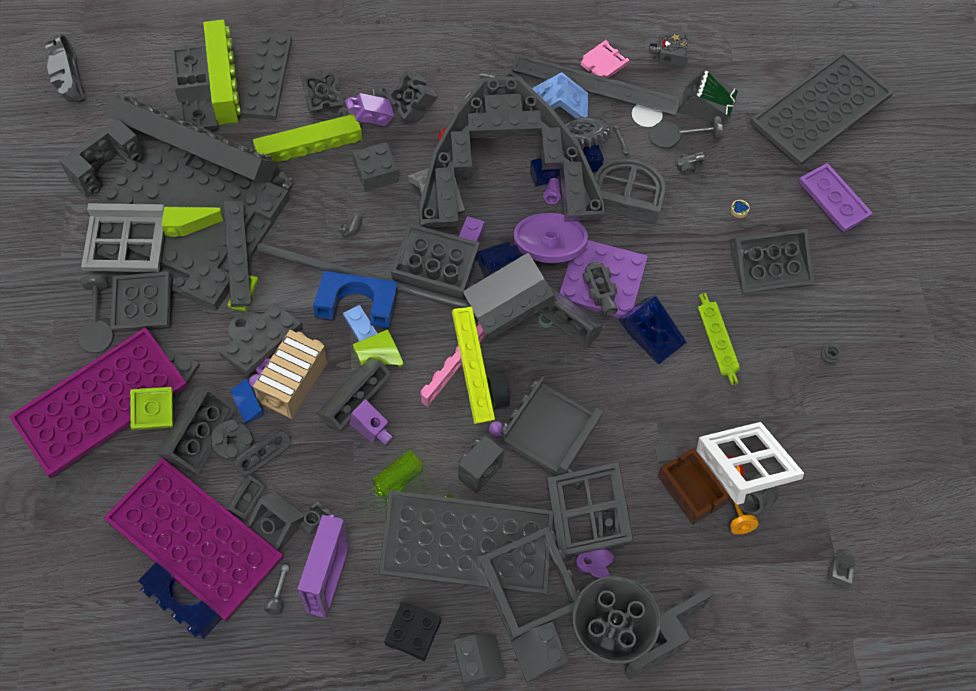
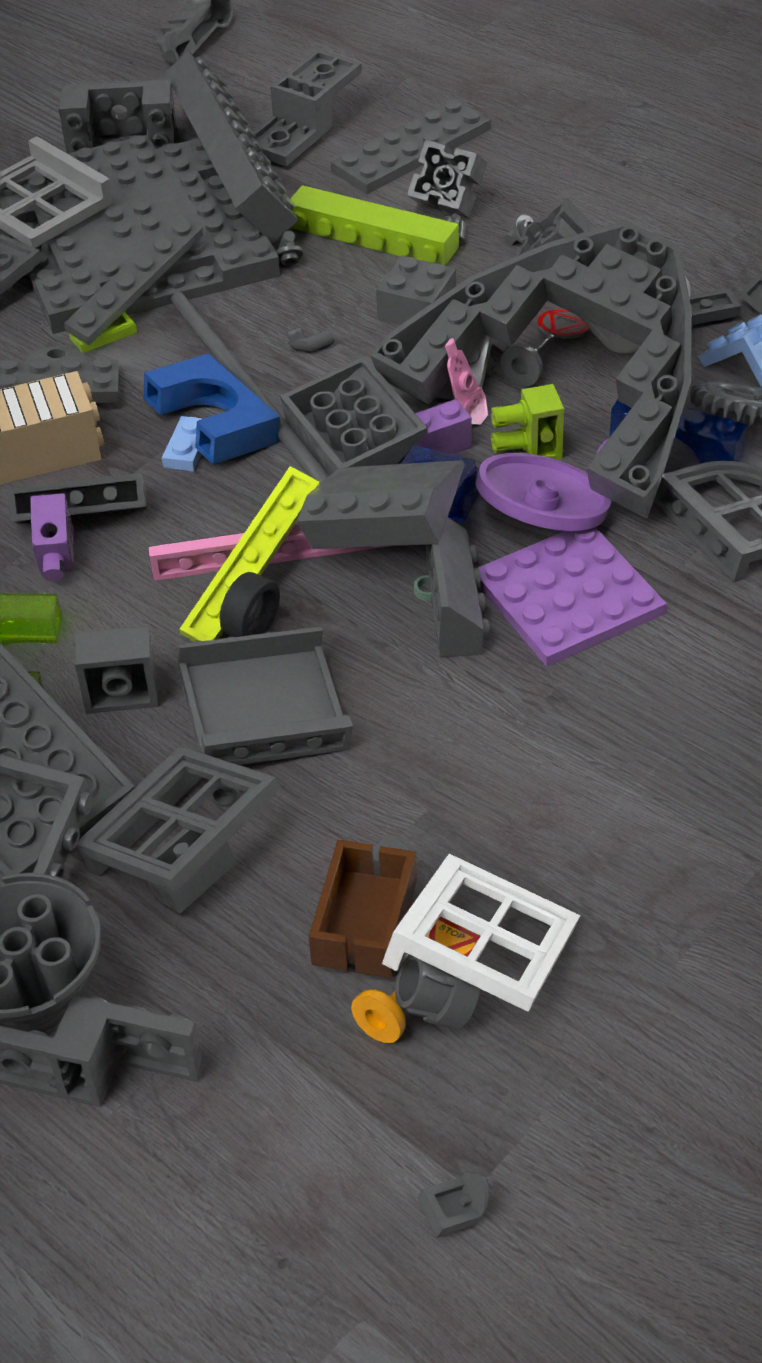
camera: 50 degrees right, 15 degrees down
(187, 220) = (121, 213): lime slope -> none
(221, 72) = (351, 106): lime brick -> none
(370, 109) = (480, 227): medium lavender brick -> none
(380, 348) = (171, 478): lime slope -> none
(464, 206) = (465, 385): none -> bright pink piece
(512, 205) = (541, 423): none -> lime brick
(597, 561) = (128, 899): medium lavender plate -> none
(602, 290) = (535, 582): dark grey brick -> none
(653, 329) = (559, 689): clear blue slope -> none
(718, 339) = (649, 772): lime plate -> none

